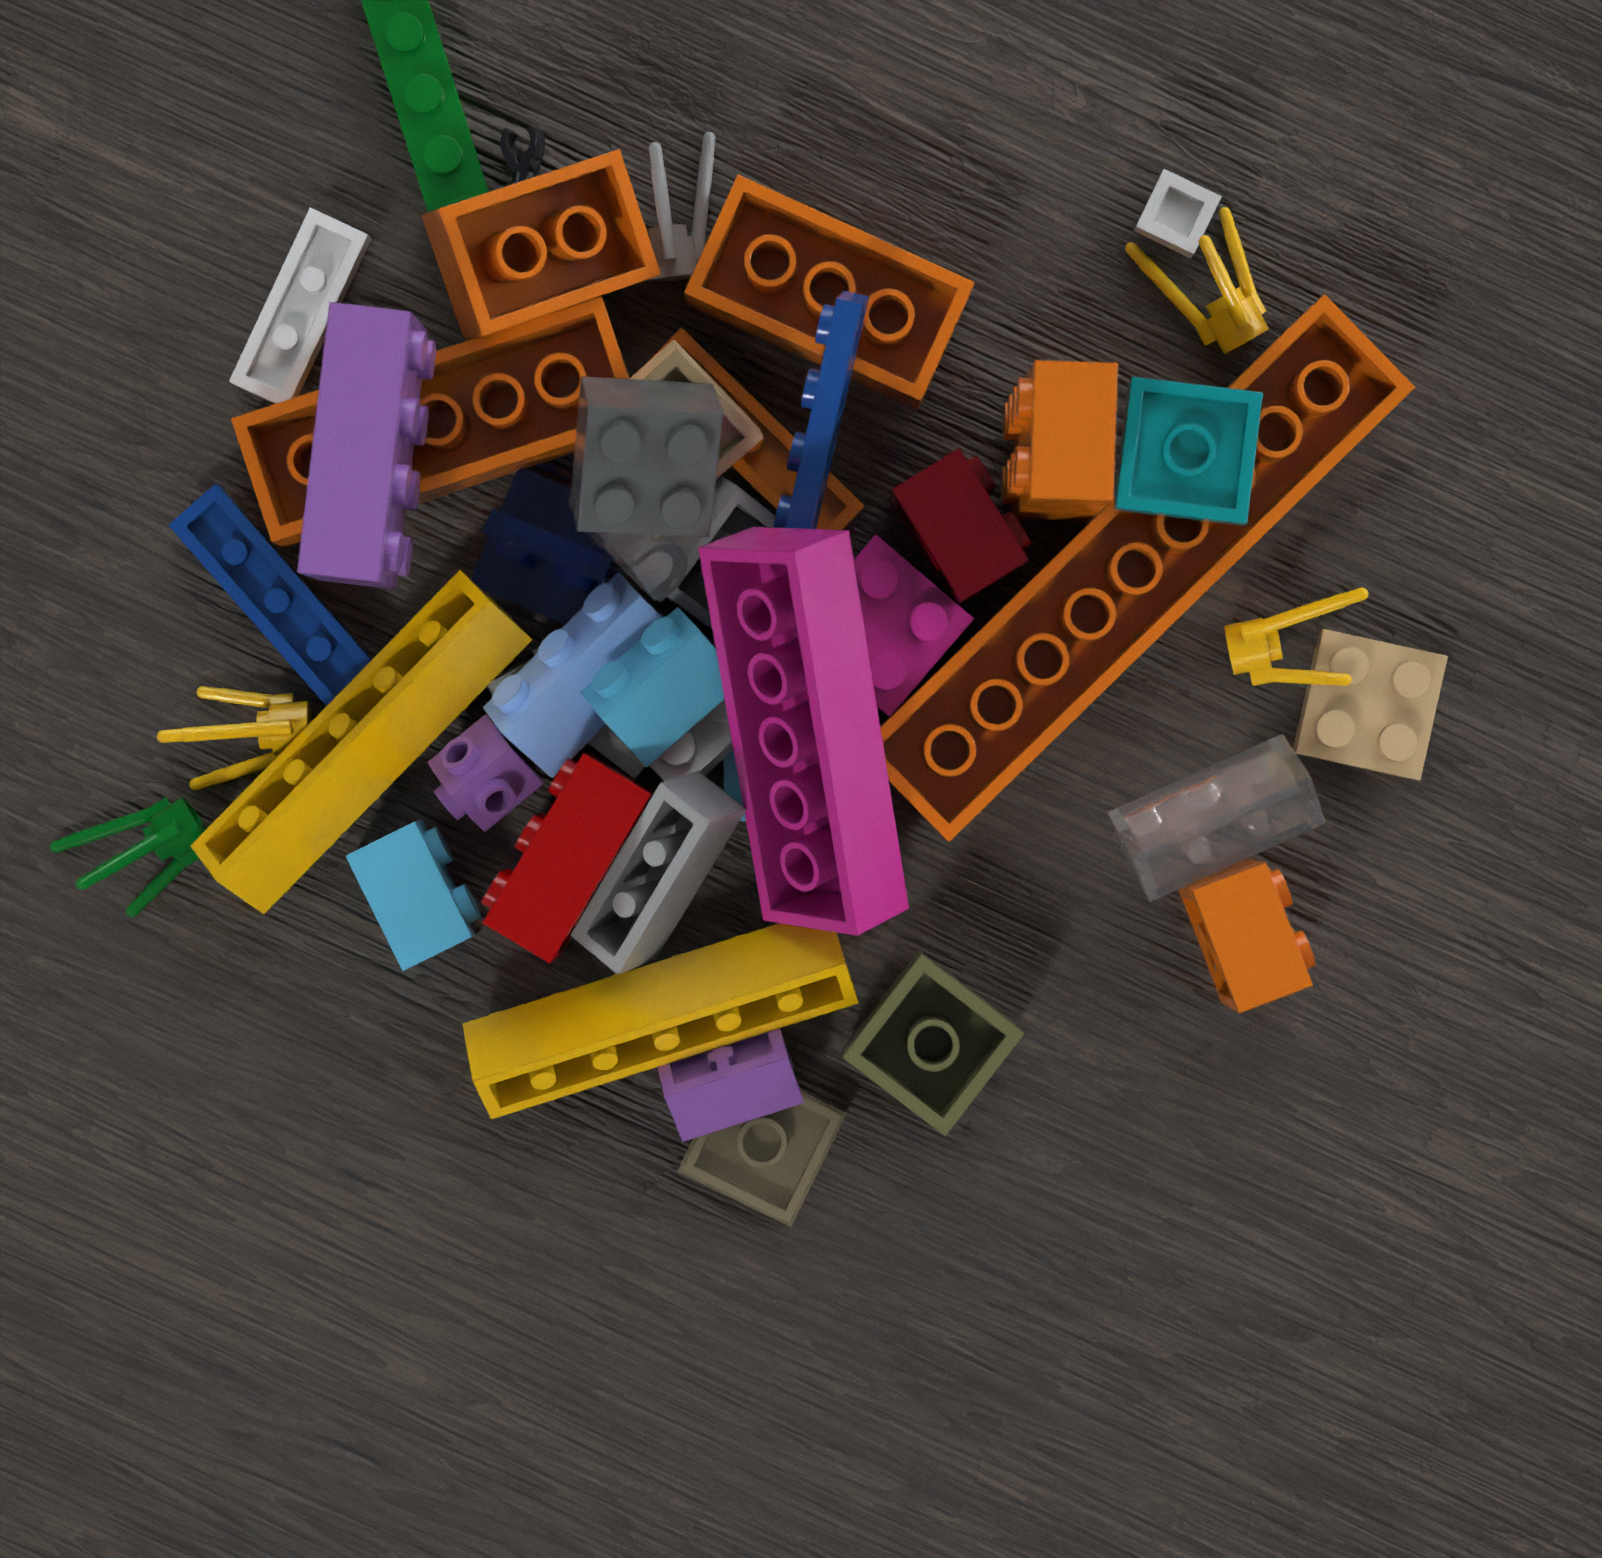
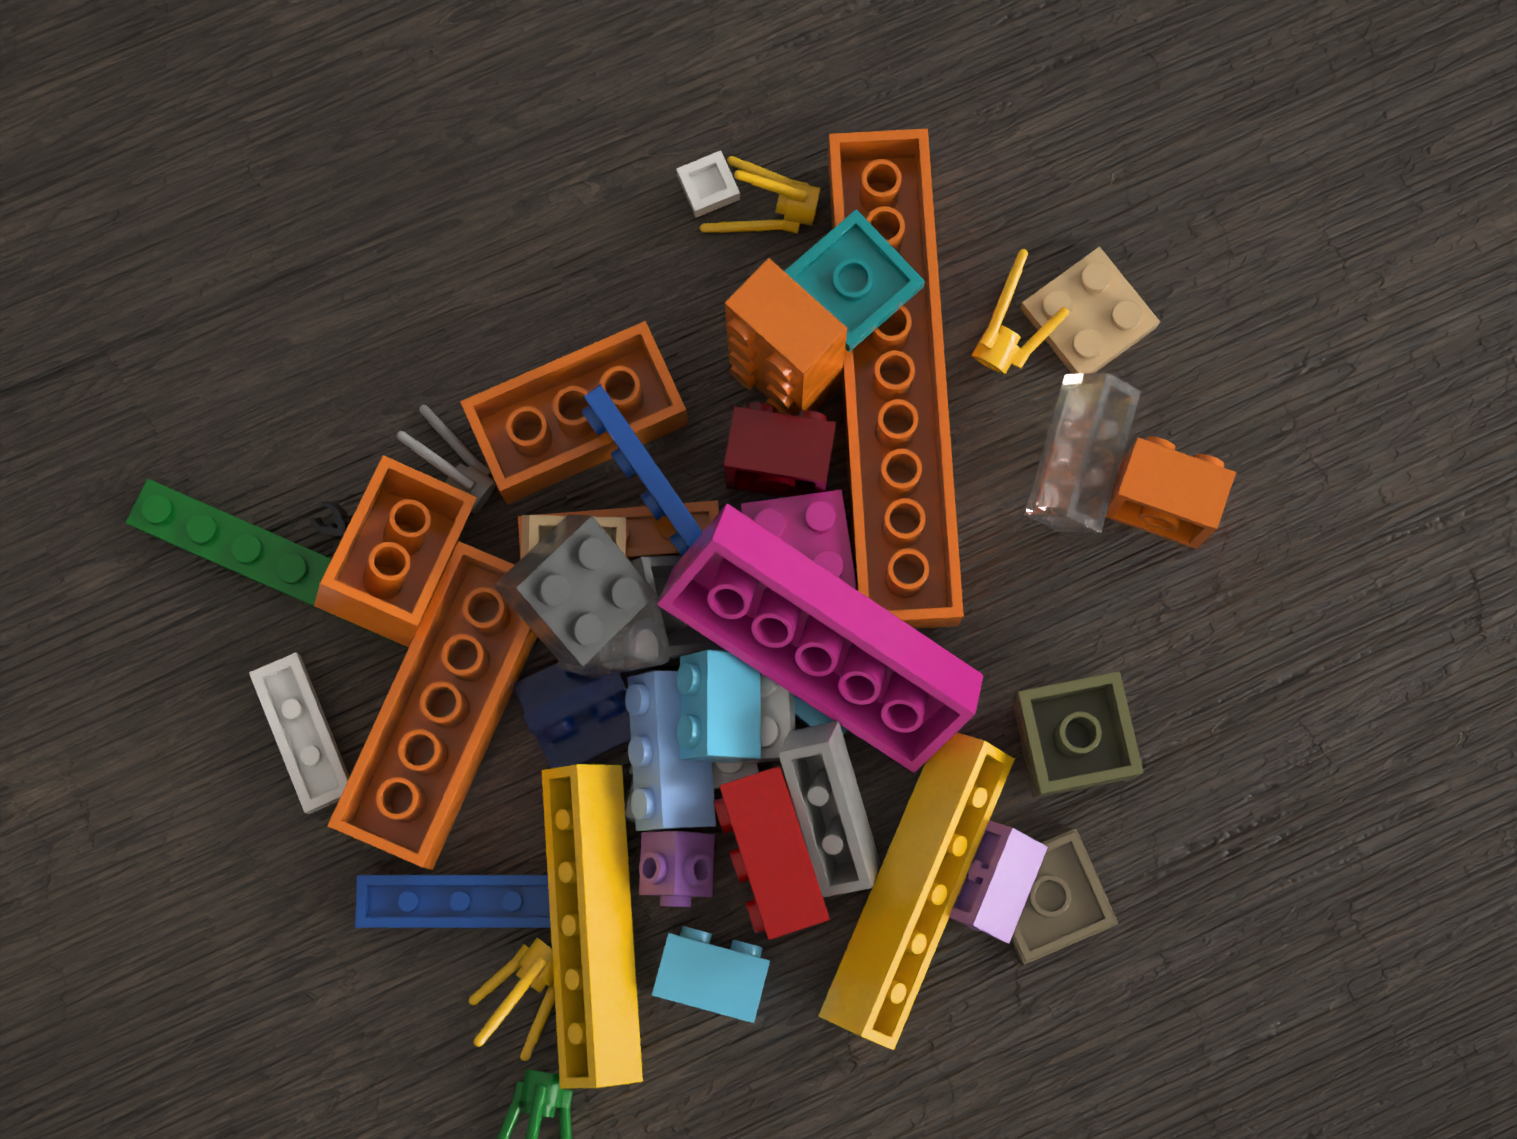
camera: 45 degrees left, 10 degrees down
(365, 446) = (416, 753): medium lavender brick -> none

